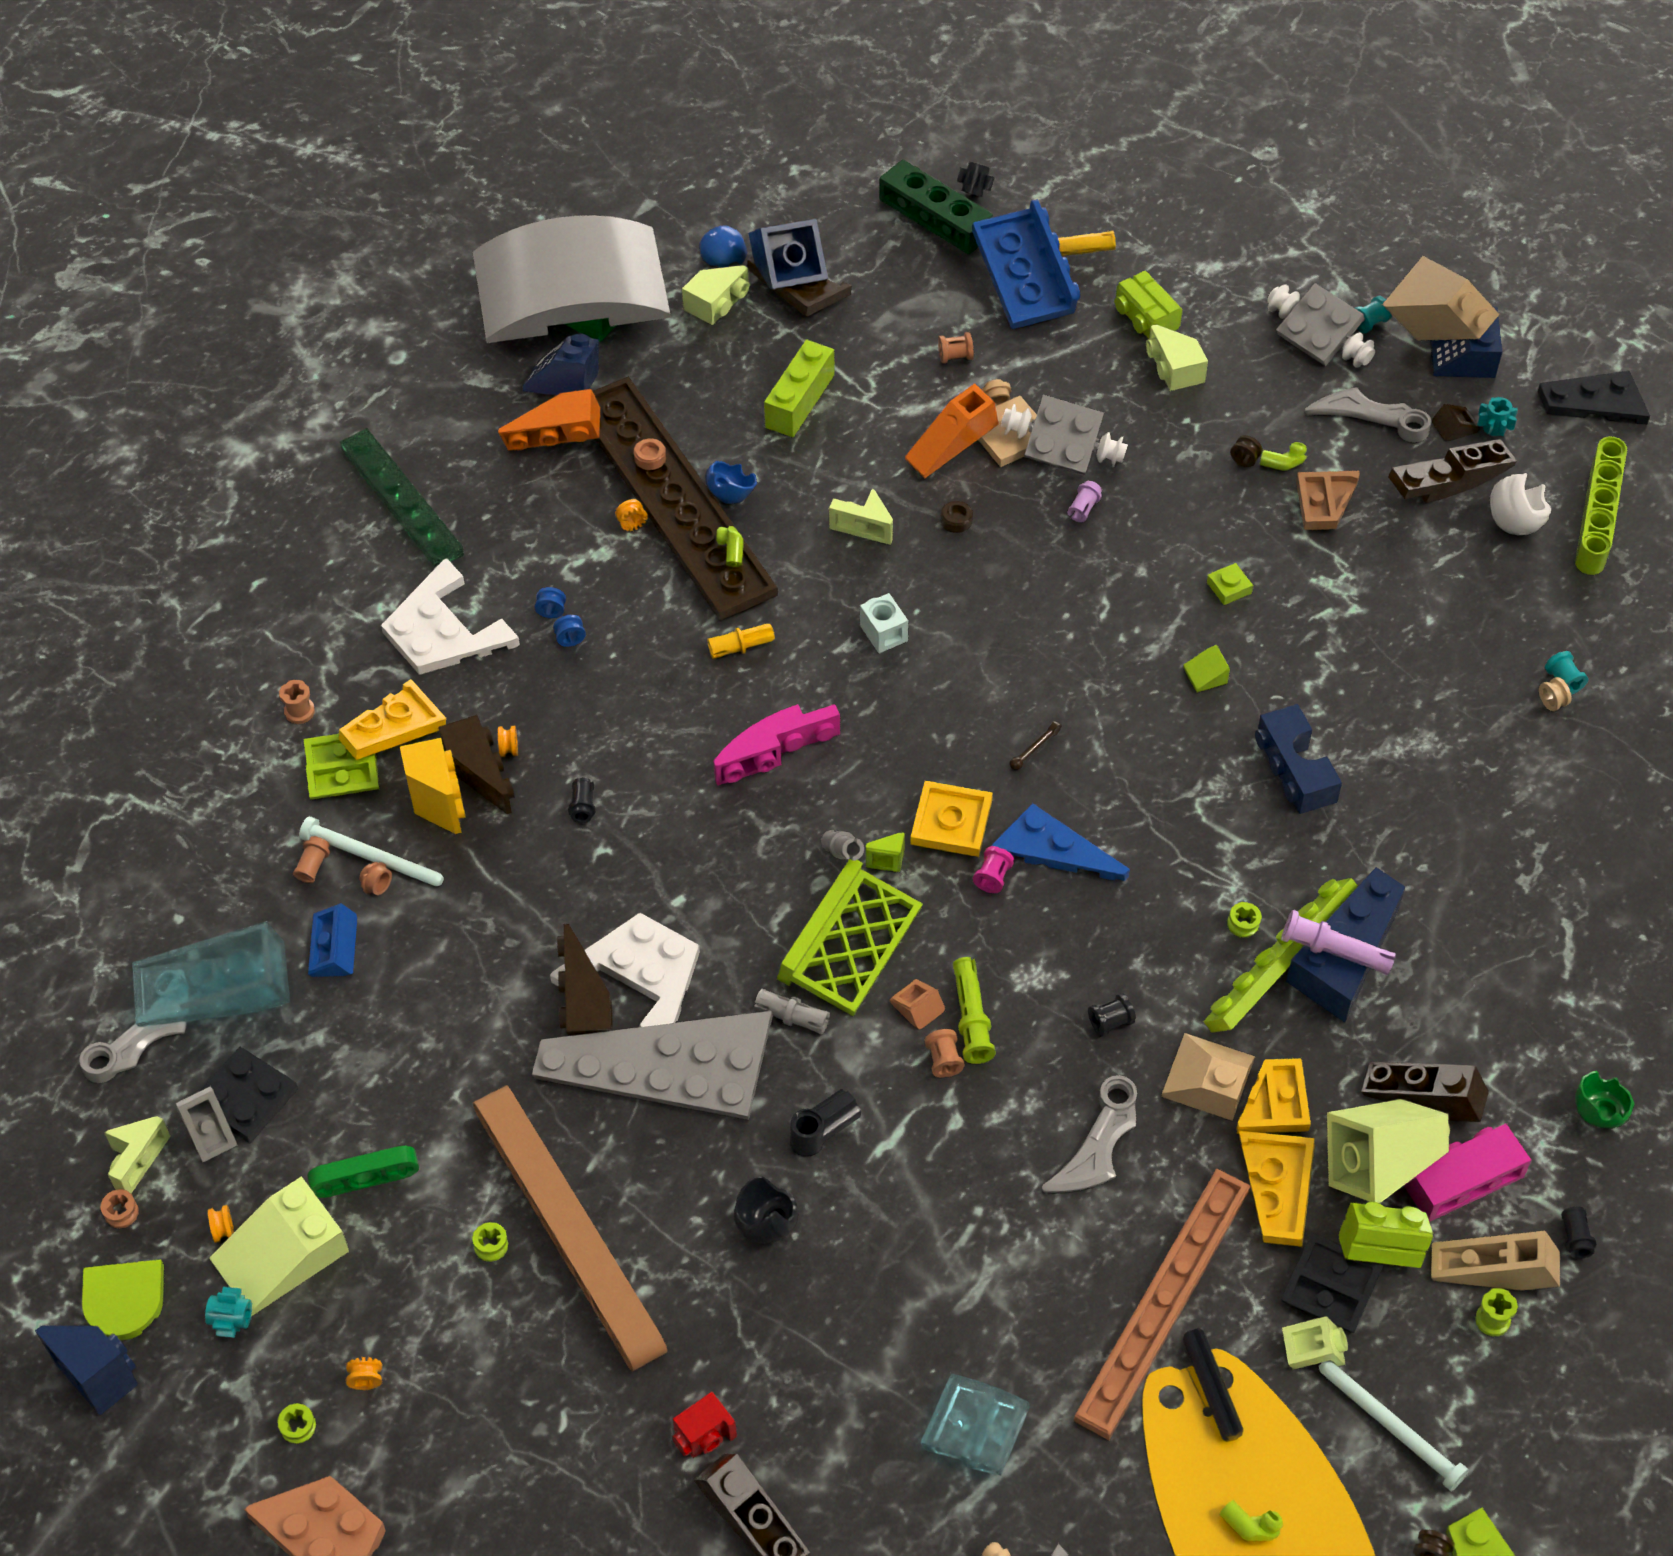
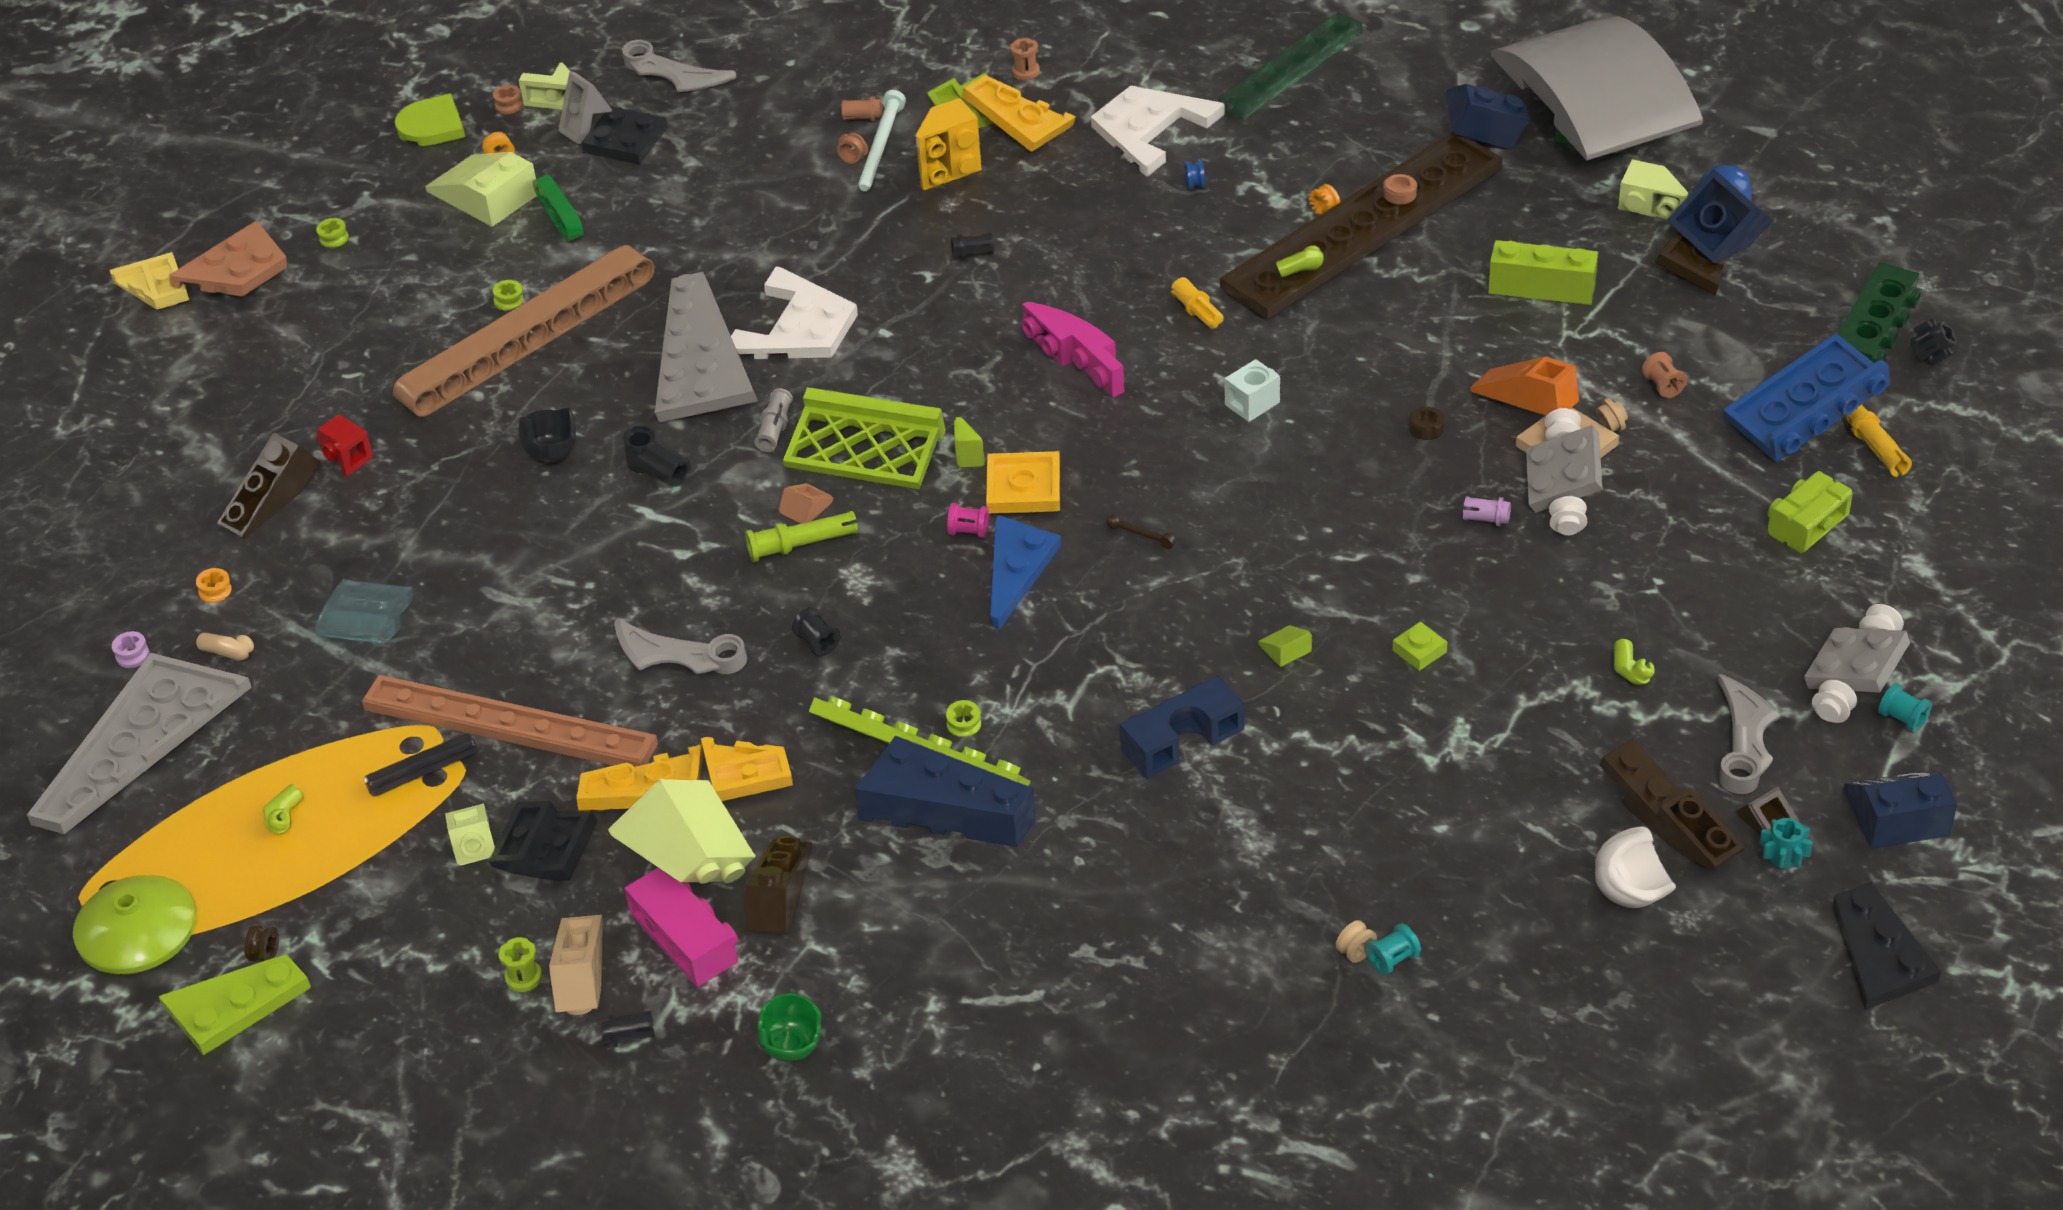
camera: 80 degrees right, 10 degrees down
(91, 1362) = (354, 107): dark blue slope -> none
(213, 978) = (725, 86): clear light blue slope -> none
(228, 1312) = (417, 168): teal gear -> none
(333, 942) = (785, 146): blue slope -> none
(364, 1374) = (373, 252): light orange bush -> none
(476, 762) = (992, 171): dark brown slope -> none
(507, 741) = (1020, 177): light orange bush -> none
(559, 420) = (1415, 122): orange slope -> none
(569, 630) = (1165, 193): blue bush -> none
(586, 996) = (757, 279): dark brown slope -> none
(729, 482) = (1391, 249): blue hair -> none
(842, 845) = (955, 403): light grey pin -> none
(863, 521) = (1391, 354): yellowish green slope -> none
(944, 1053) = (749, 519): nougat bush -> none
(1177, 358) = (1734, 548): yellowish green slope -> none
(1208, 1076) = (764, 717): tan slope -> none
(1246, 451) = (1620, 625): dark brown bush -> none
(1321, 937) = (911, 738): lavender pin -> none
(1325, 497) = (1580, 703): medium nougat wing -> none
(1385, 1234) = (585, 856): lime brick -> none
(1439, 304) = (1919, 733): tan slope -> none
(1453, 1474) = (341, 953): light aqua bar -> none
(1601, 505) = (1682, 958): lime beam -> none

